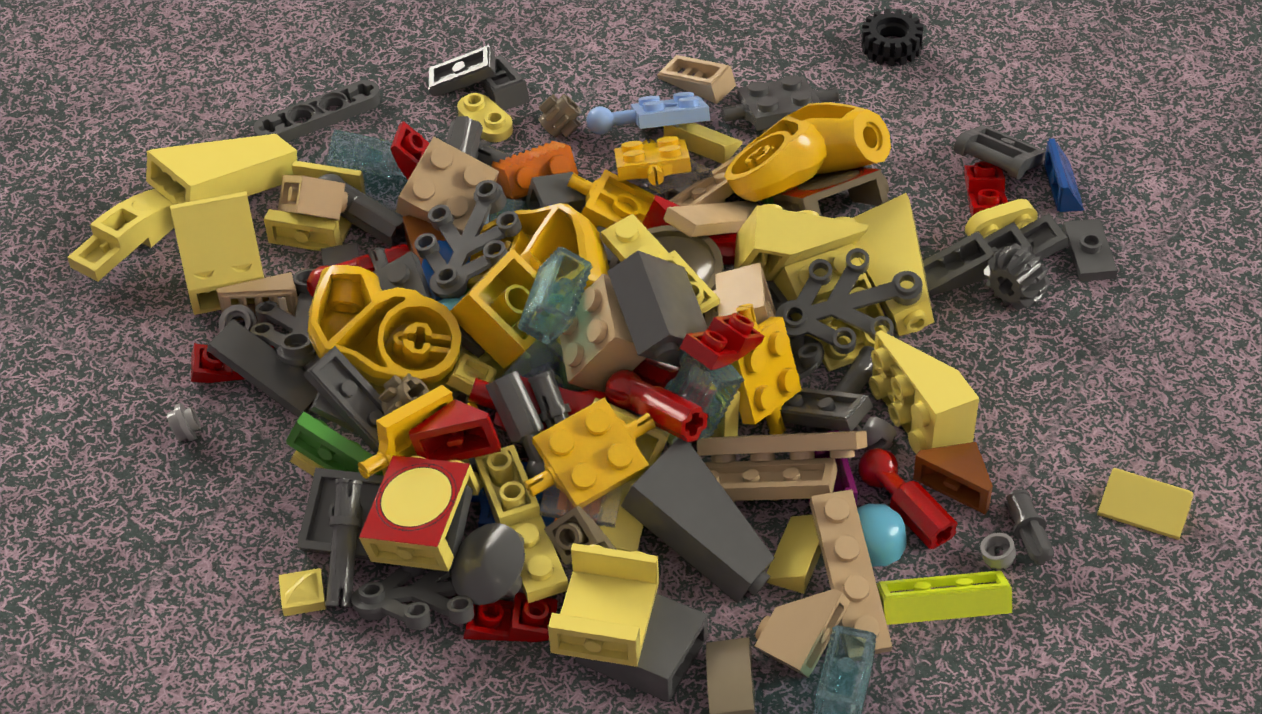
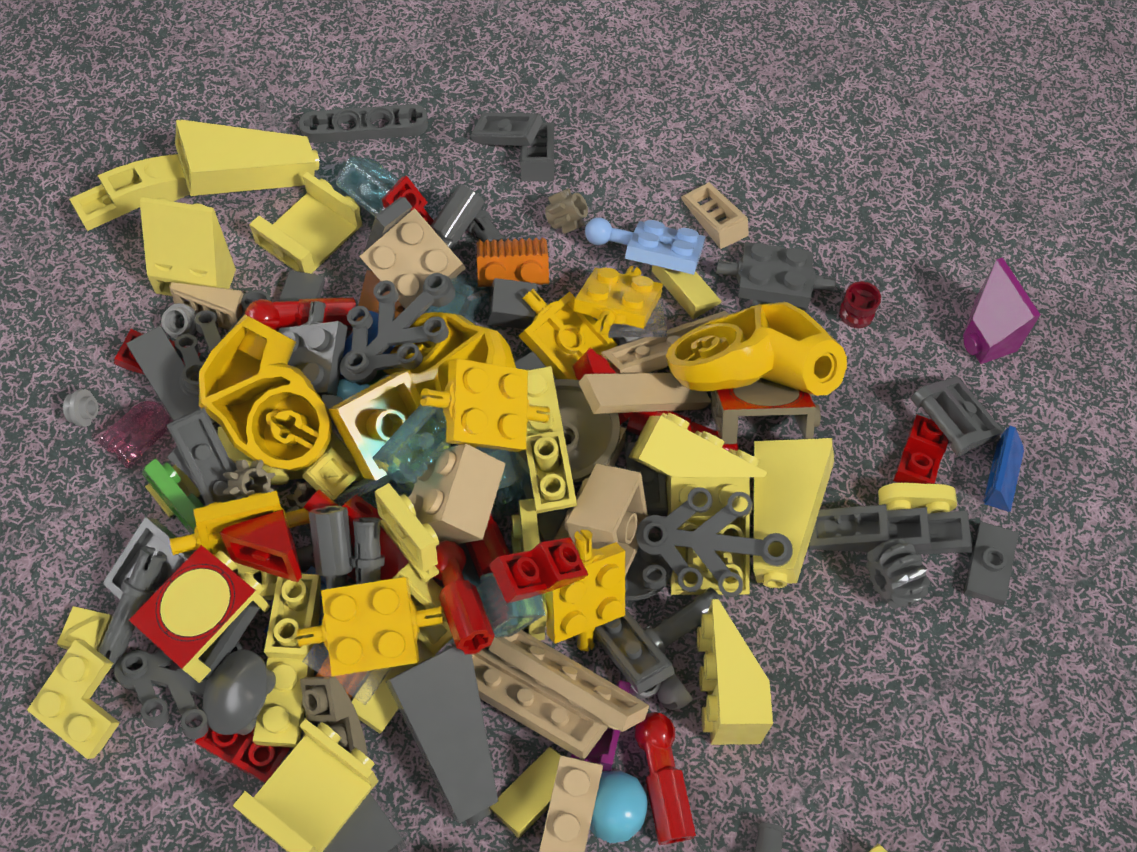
camera: 20 degrees right, 15 degrees up
(254, 412) = (148, 425): none -> clear pink plate
(312, 196) = (299, 220): tan slope -> none
(321, 646) = (66, 702): none -> light yellow plate
(371, 214) = (342, 243): dark grey piece -> none
(409, 160) = (387, 219): none -> dark grey tile
(495, 121) = (502, 182): light yellow plate -> none
(585, 366) = (411, 537): none -> light yellow plate
(597, 238) = (486, 405): none -> yellow plate
(656, 305) = (502, 502): dark grey brick -> none
(869, 94) = (860, 304): none -> dark red wheel
(887, 49) = (922, 225): black tyre -> none
(957, 473) = (727, 775): dark orange slope -> none
(994, 63) = (999, 316): none -> slope

